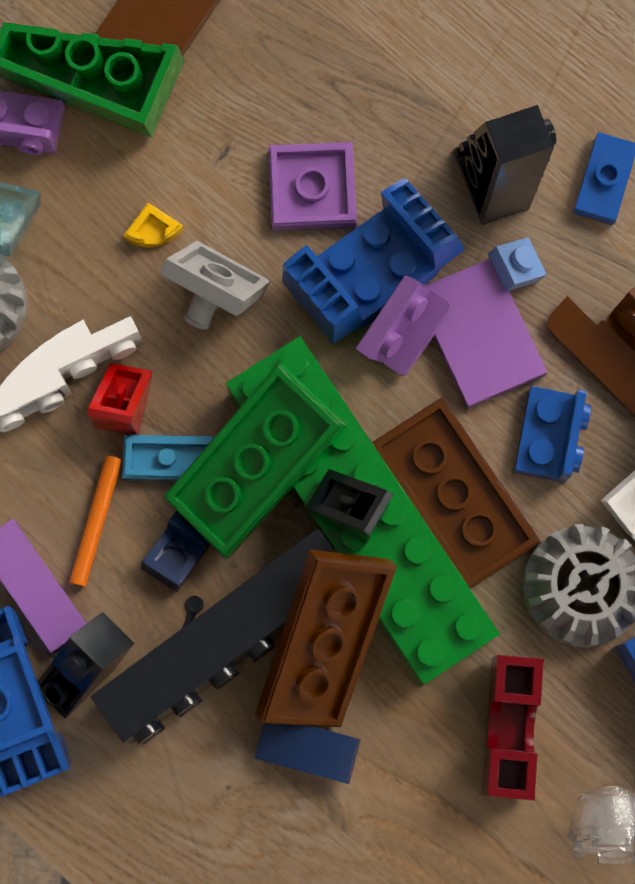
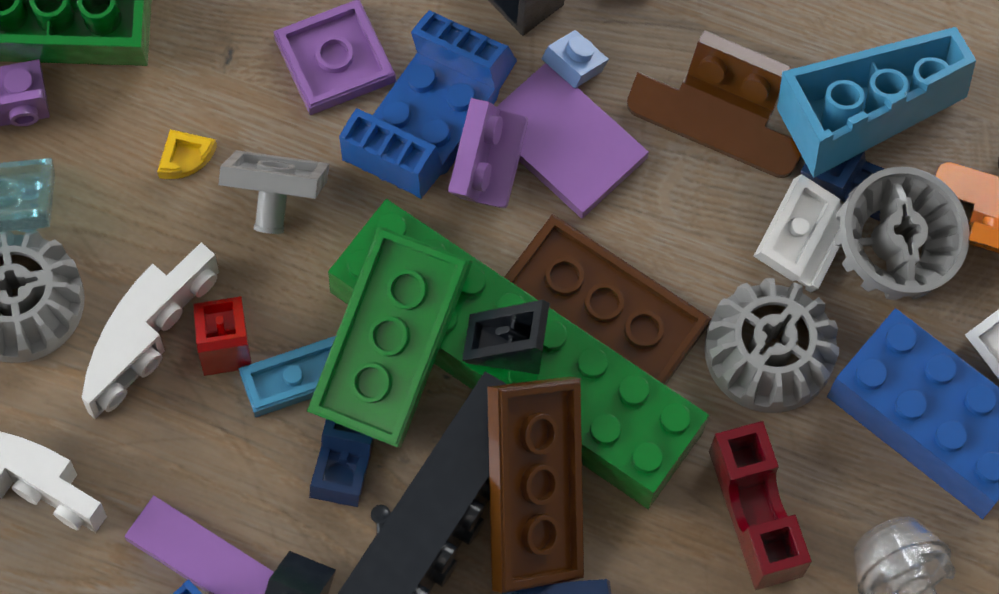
camera: 25 degrees left, 10 degrees down
(95, 521) = (242, 468): orange bar -> none
(551, 434) = (678, 211): blue bracket -> none

